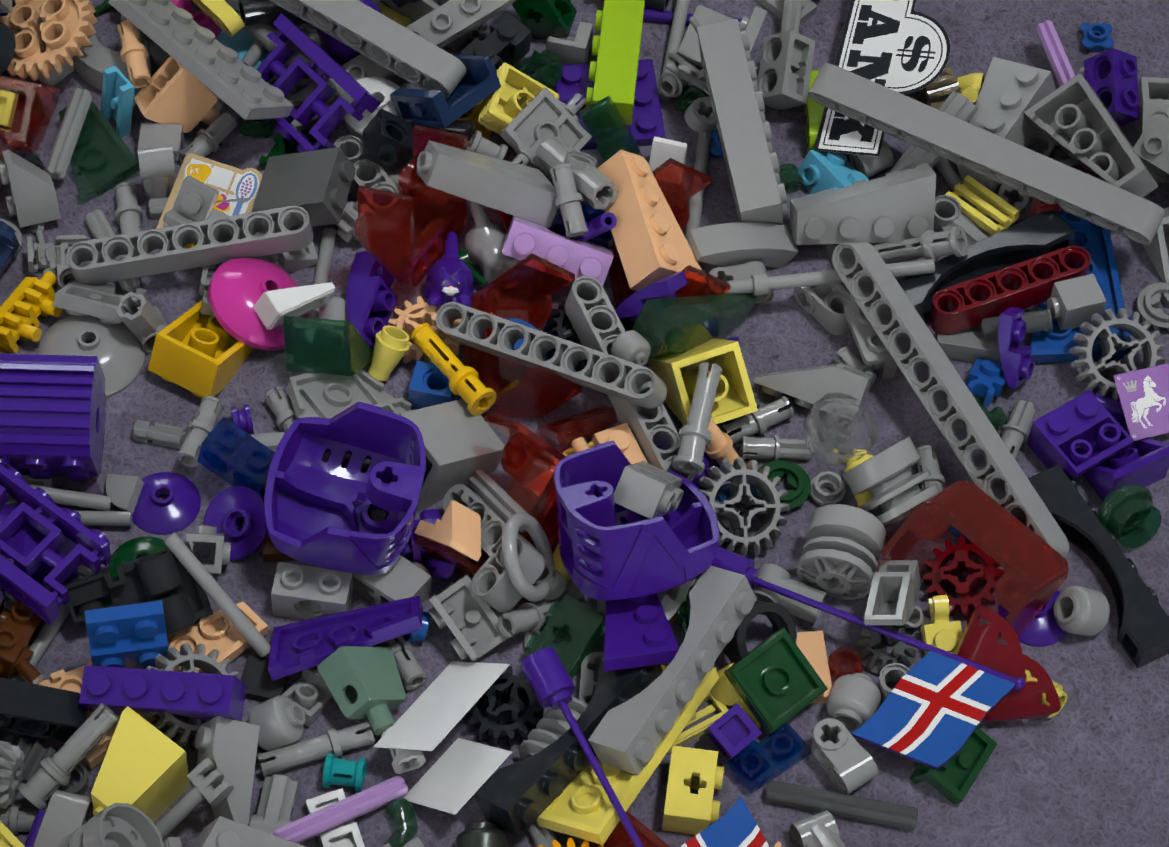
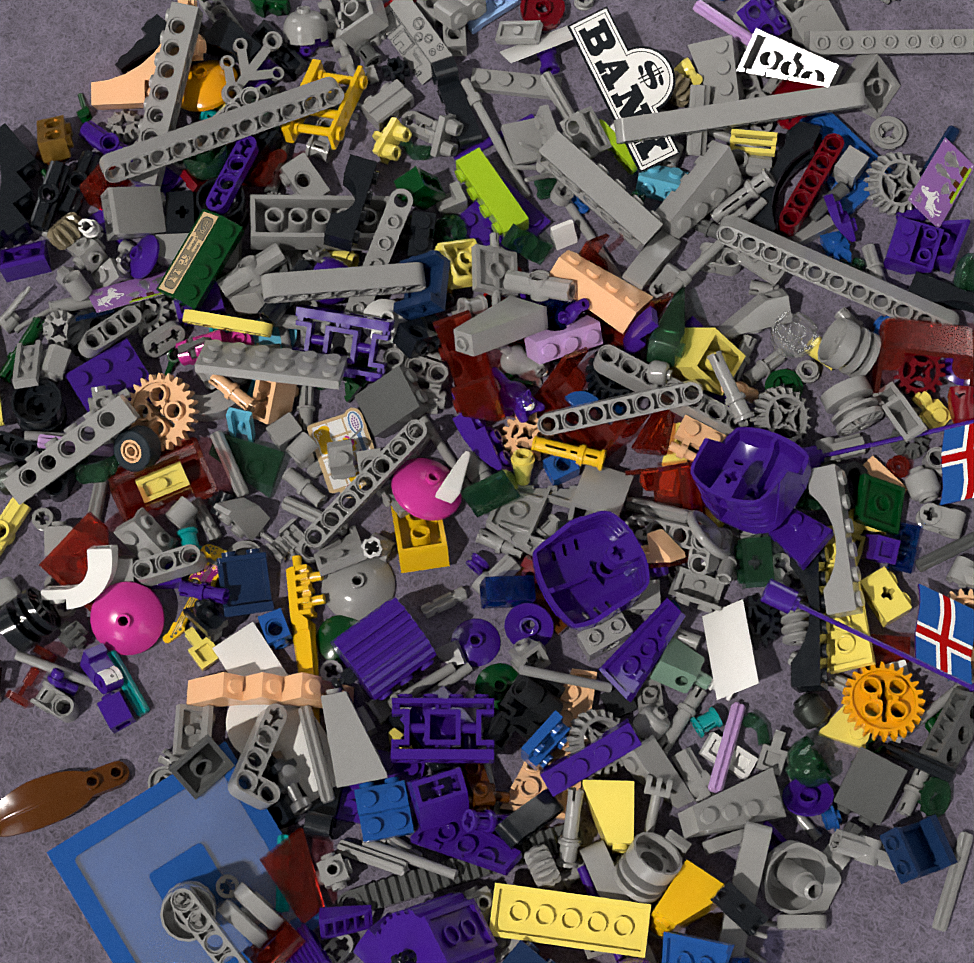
camera: 30 degrees left, 15 degrees up
(199, 429) = (465, 589): light grey pin -> none
(457, 776) = (774, 682): white sticker -> none
(568, 200) = (553, 307): light grey pin -> none
(648, 490) = (745, 451): light grey brick -> none
(671, 84) = (529, 188): light grey pin -> none

